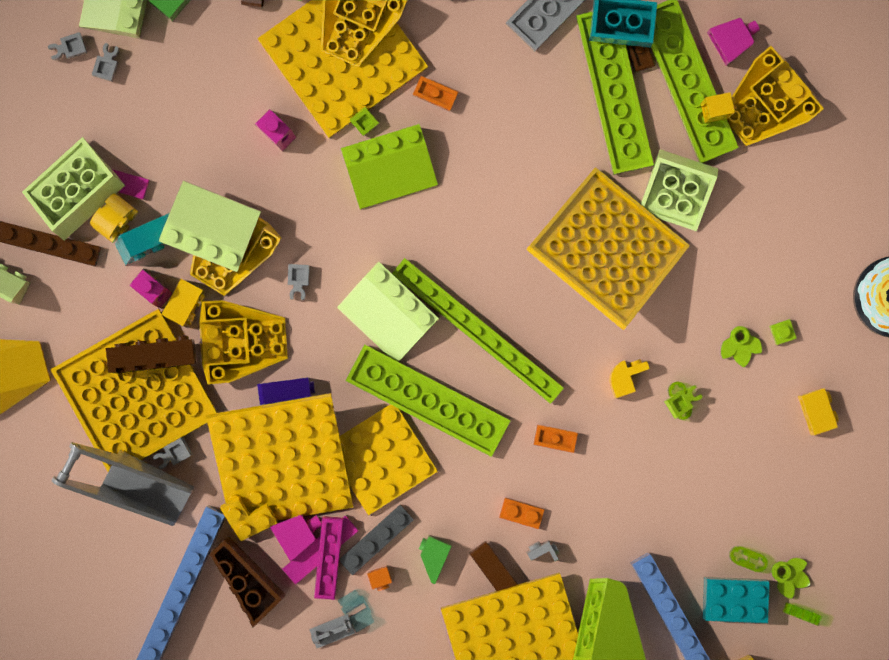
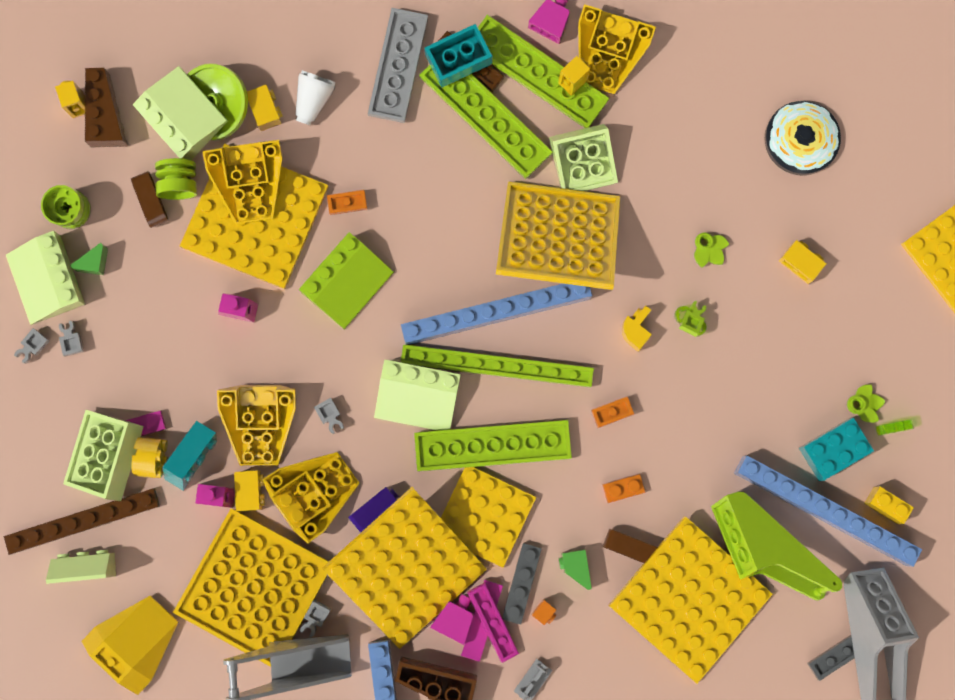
camera: 30 degrees left, 5 degrees down
(151, 356) = (248, 549): reddish brown wedge -> none
(209, 226) = (231, 414): yellowish green slope -> none
(247, 523) = (407, 637): yellow plate -> none
(362, 618) = (550, 654): clear light blue piece -> none
(364, 121) = (304, 258): lime plate -> none
(503, 279) = (494, 312): none -> medium blue brick
(539, 549) = (655, 508): light grey bracket -> none
(750, 554) = (823, 406): clear neon green beam -> none
(782, 332) = (735, 218): lime plate -> none

